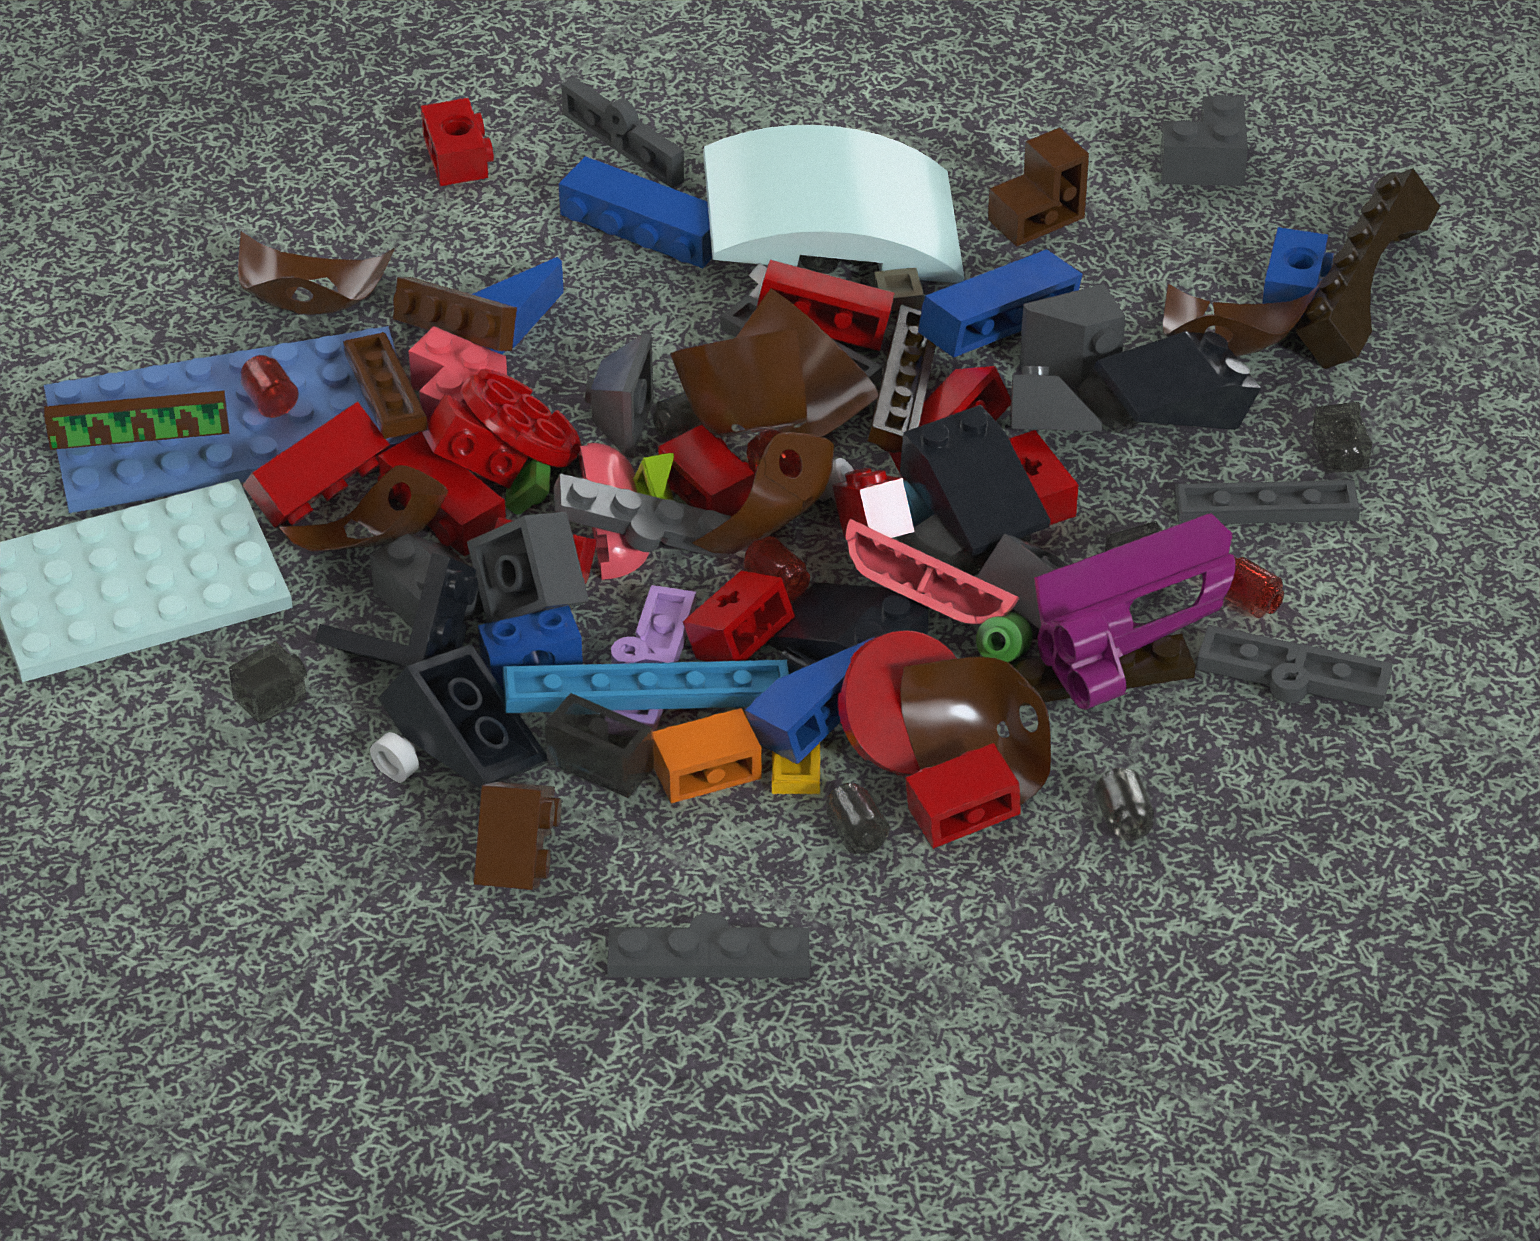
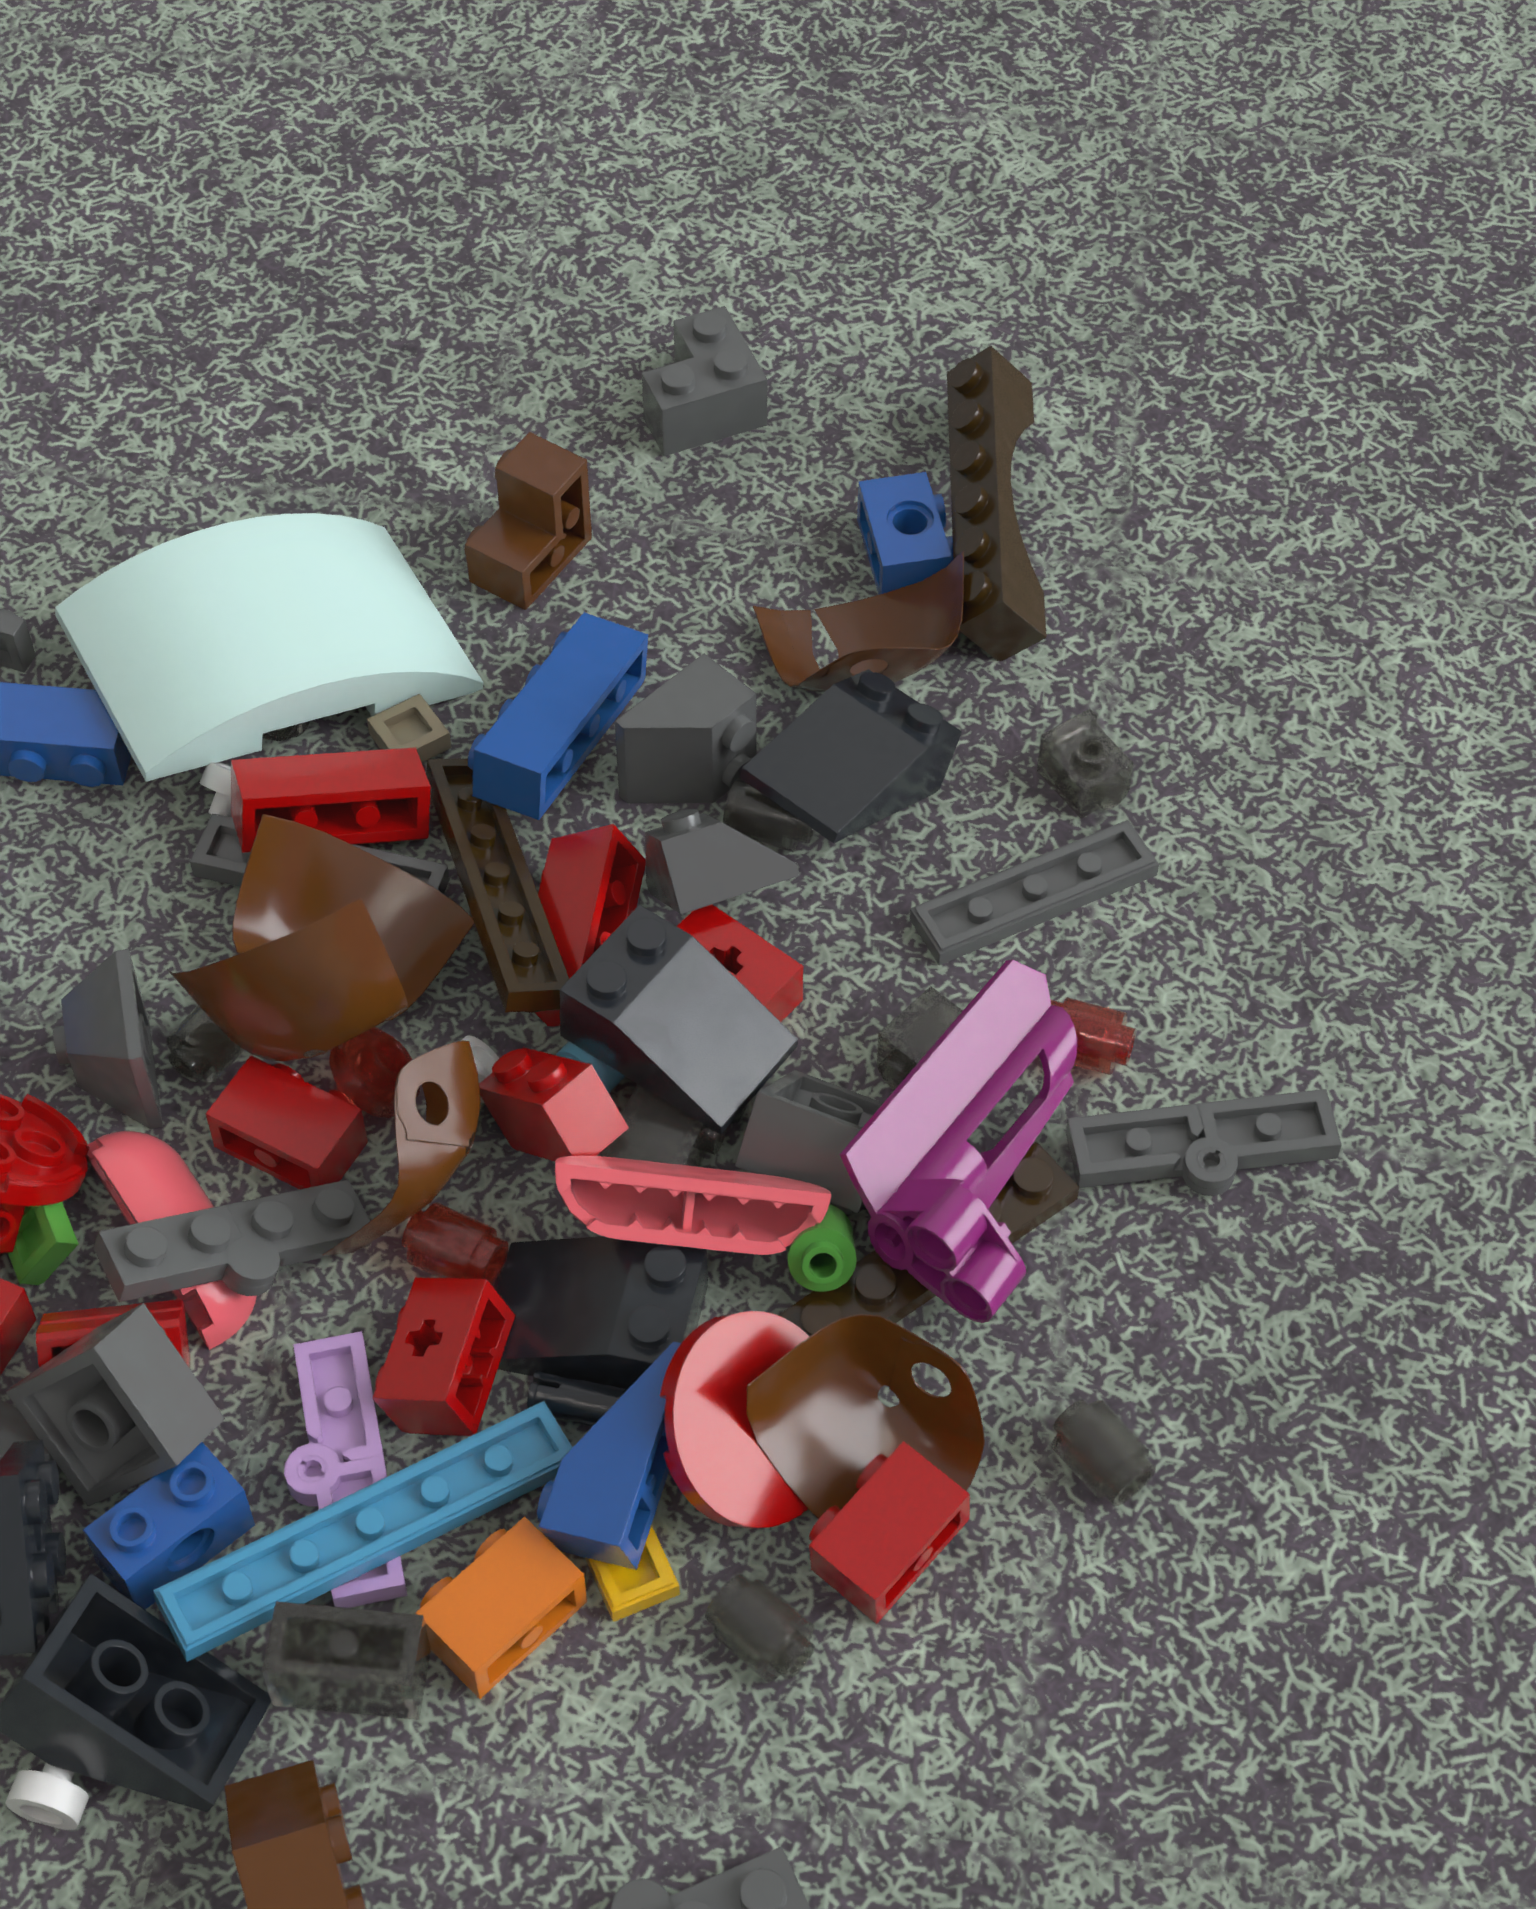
camera: 25 degrees left, 10 degrees up
(653, 476) = (221, 1170): lime slope -> none

